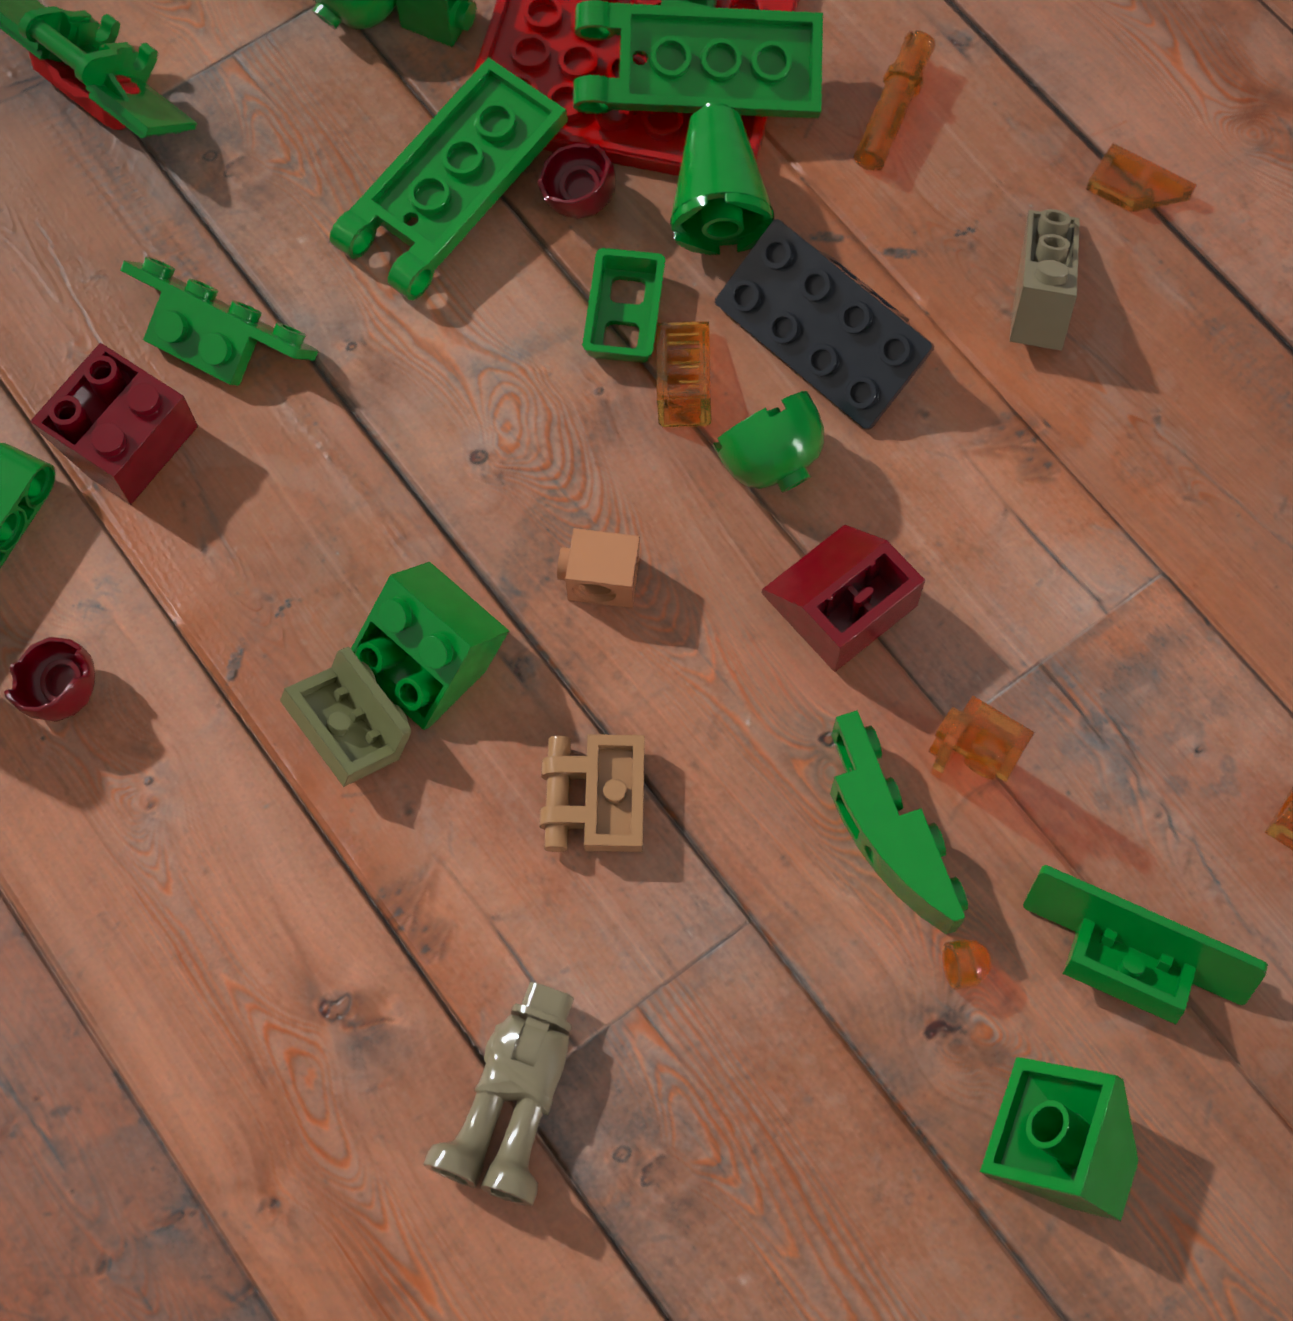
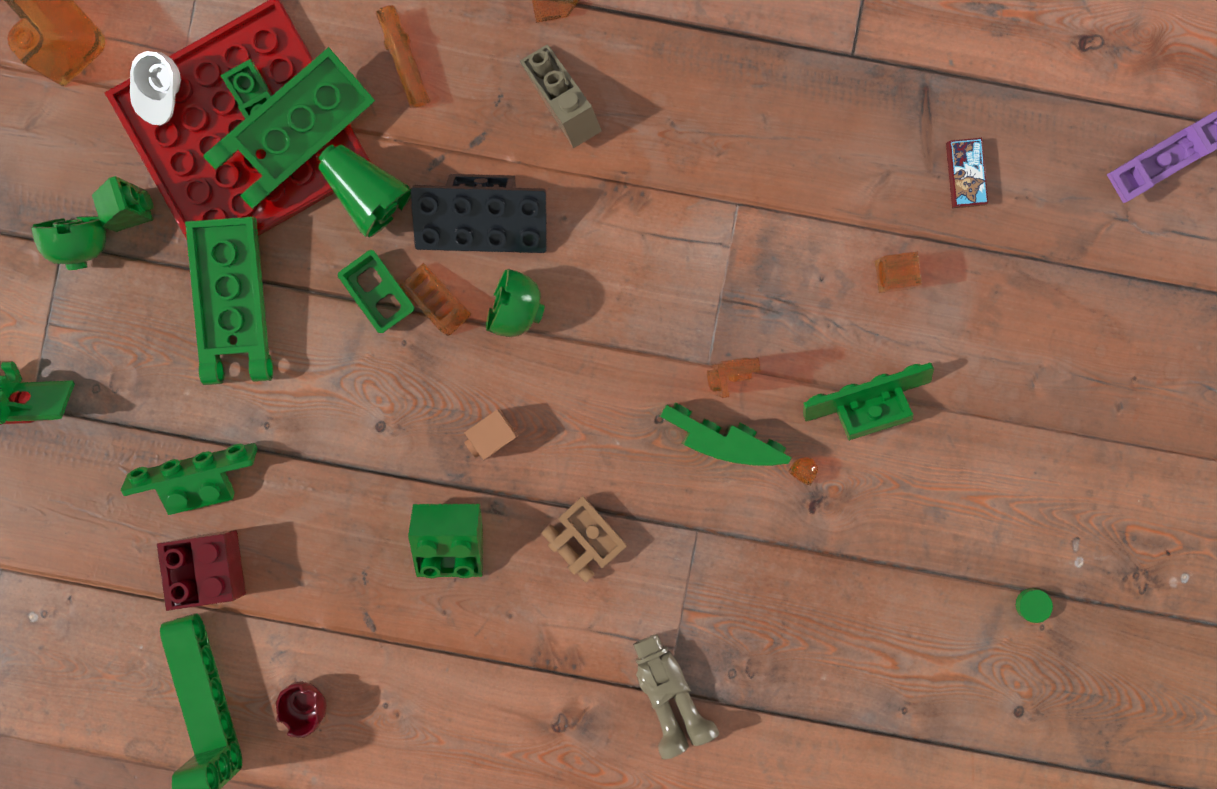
camera: 40 degrees left, 20 degrees up
(348, 718) = (446, 606): olive bracket -> none
(577, 180) = (291, 245): dark red hair -> none
(846, 593) = (608, 349): dark red slope -> none
(1065, 1137) = (905, 512): green slope -> none

